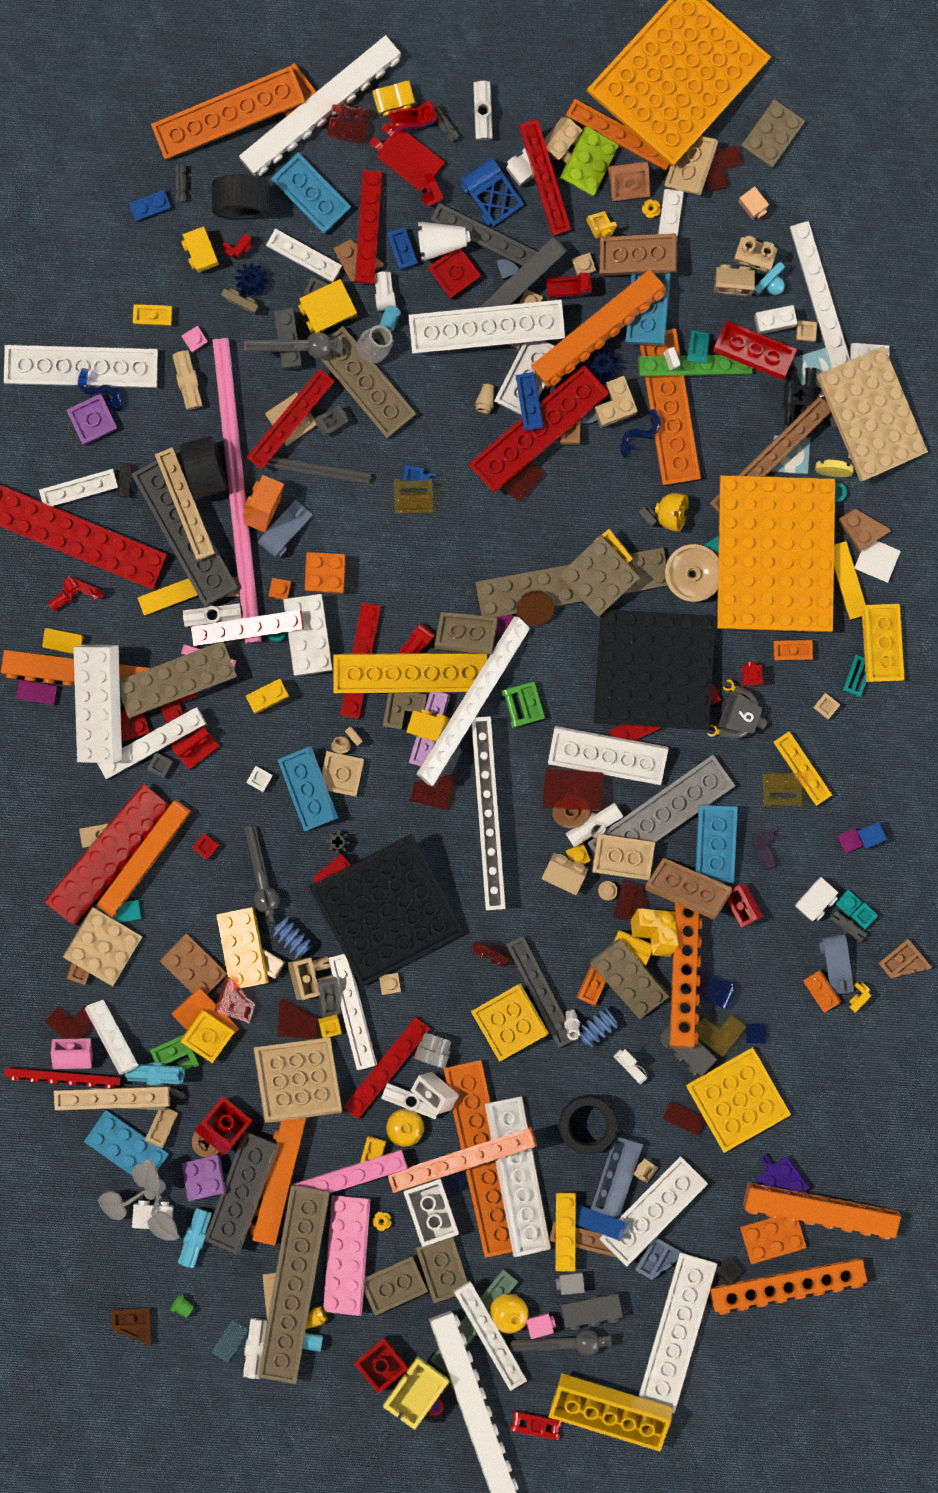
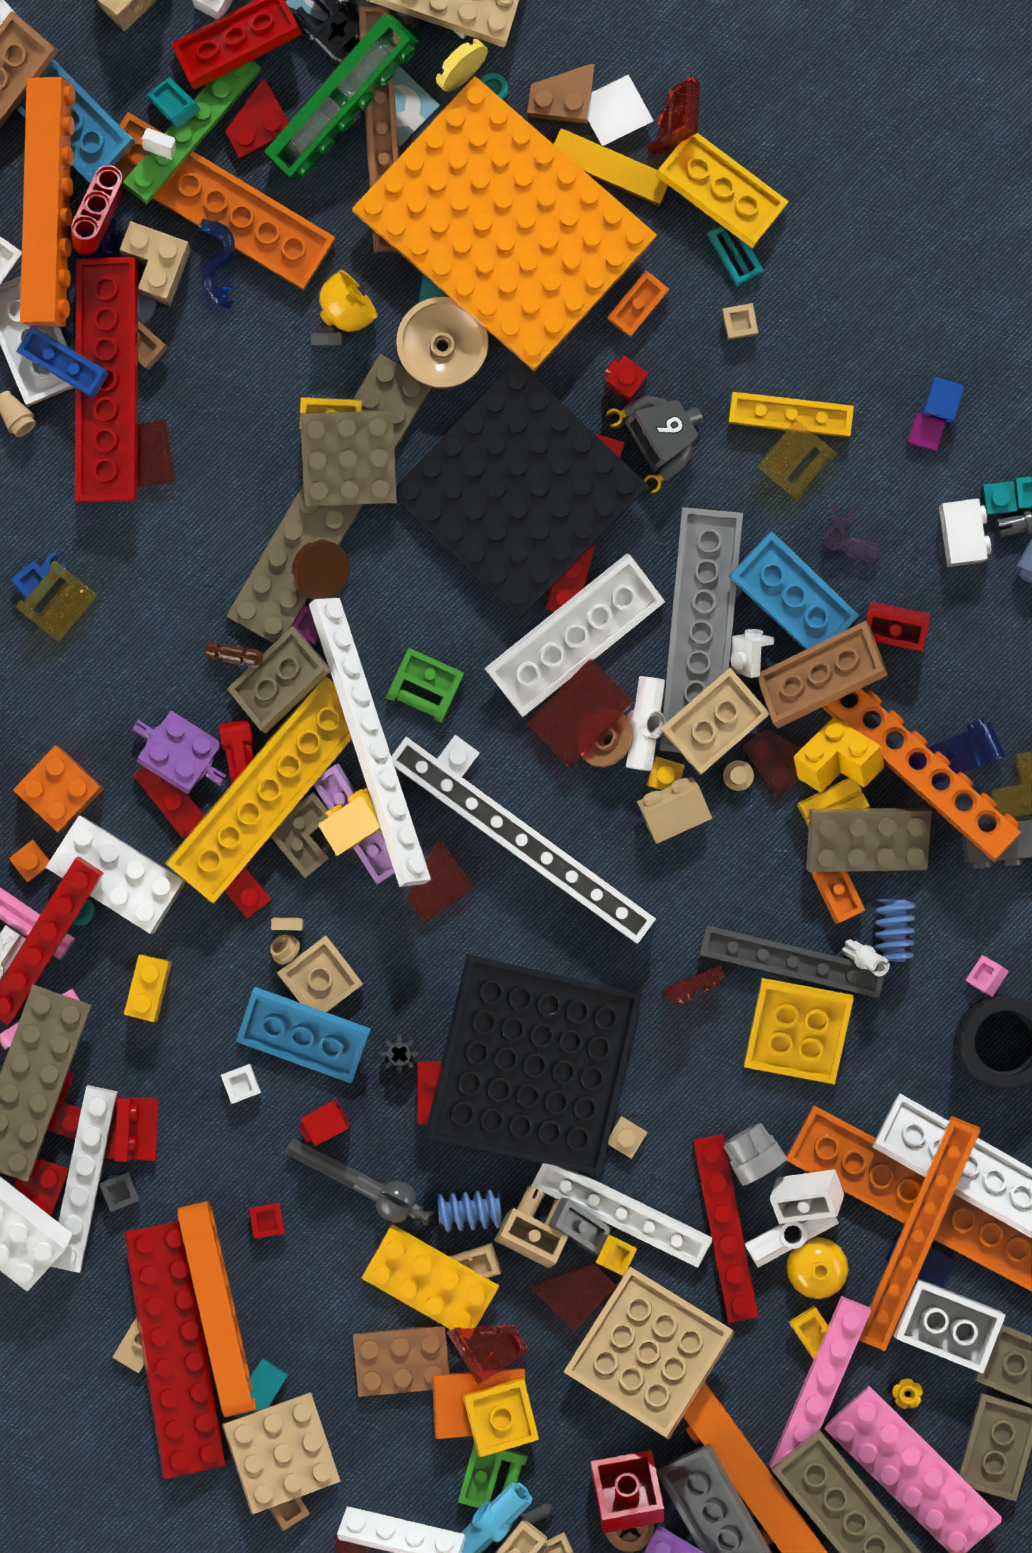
camera: 55 degrees left, 0 degrees up
(274, 834) = (324, 1123): none -> red brick
(391, 615) = (179, 752): none -> medium lavender plate
(460, 601) = (234, 654): none -> reddish brown axle
(503, 749) = (458, 756): none -> white plate
(608, 360) = (96, 222): none -> red beam
(613, 1090) = (987, 975): none -> bright pink plate
(628, 1062) = (974, 929): white piece -> none
(670, 844) = (747, 652): none -> white bracket
(724, 394) = (257, 122): none -> red wing
(769, 425) = (342, 96): none -> green piece
(900, 592) = (679, 116): none -> clear red wing

